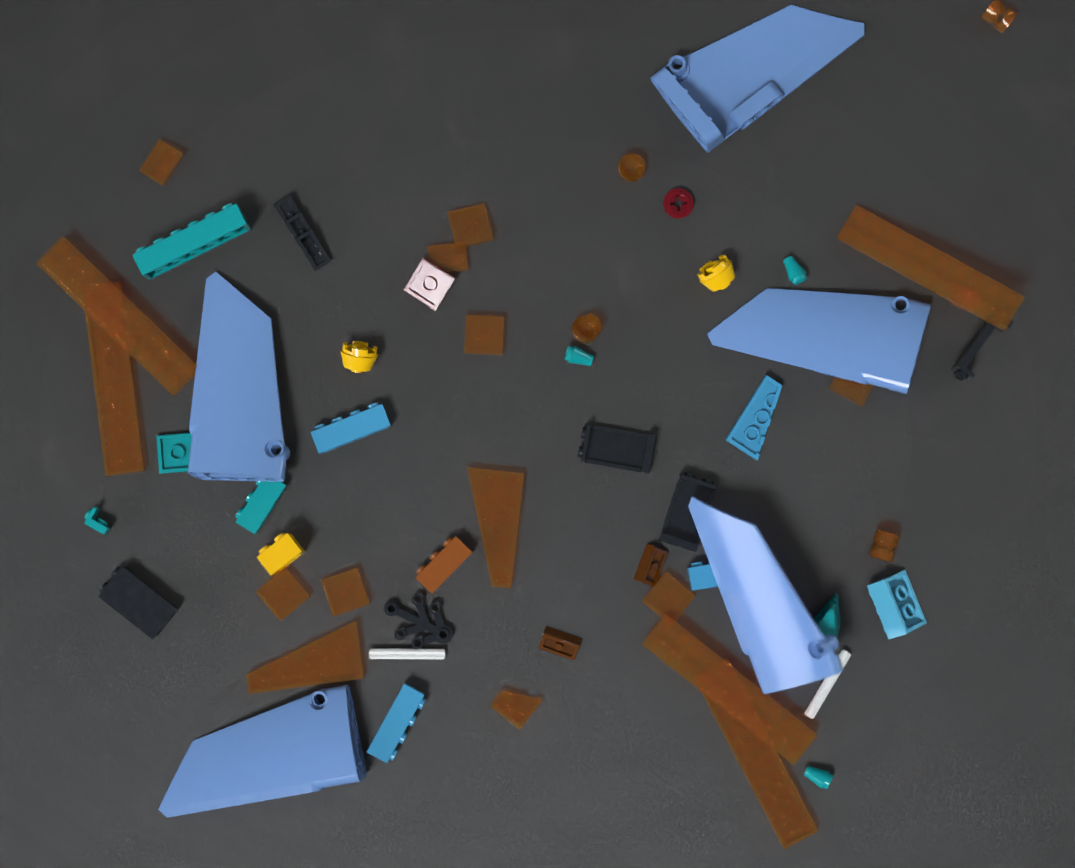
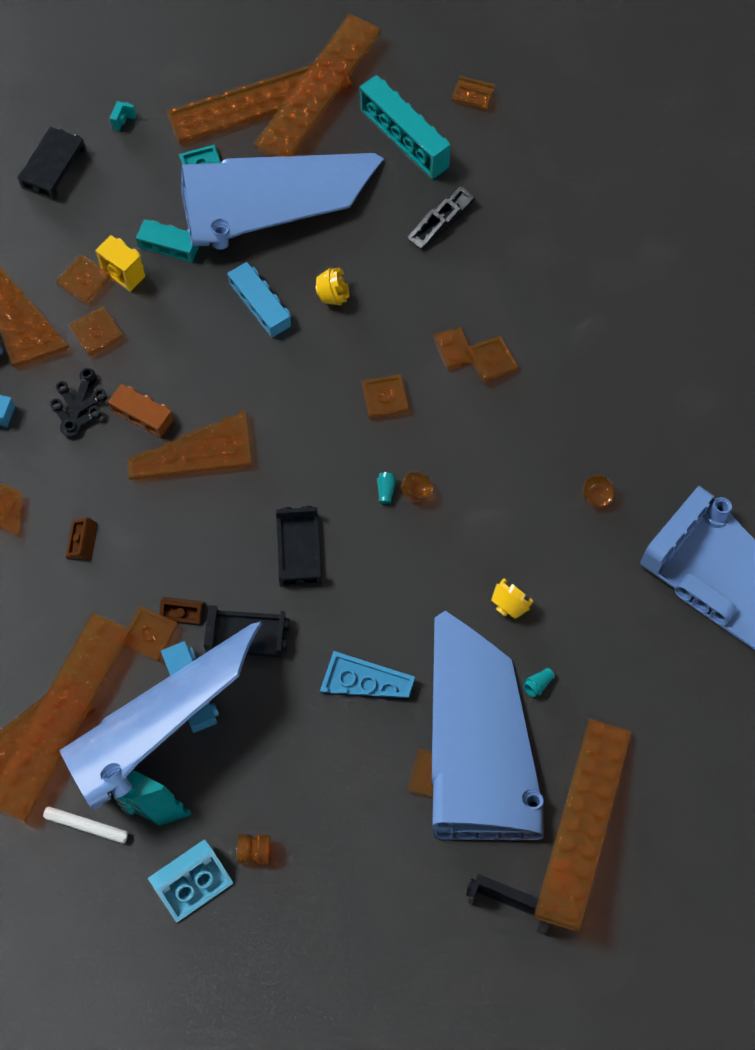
camera: 80 degrees right, 20 degrees down
(406, 653) = (44, 400): white axle -> none
(429, 283) = (422, 335): plate -> none
(683, 196) = (578, 540): dark red gear -> none

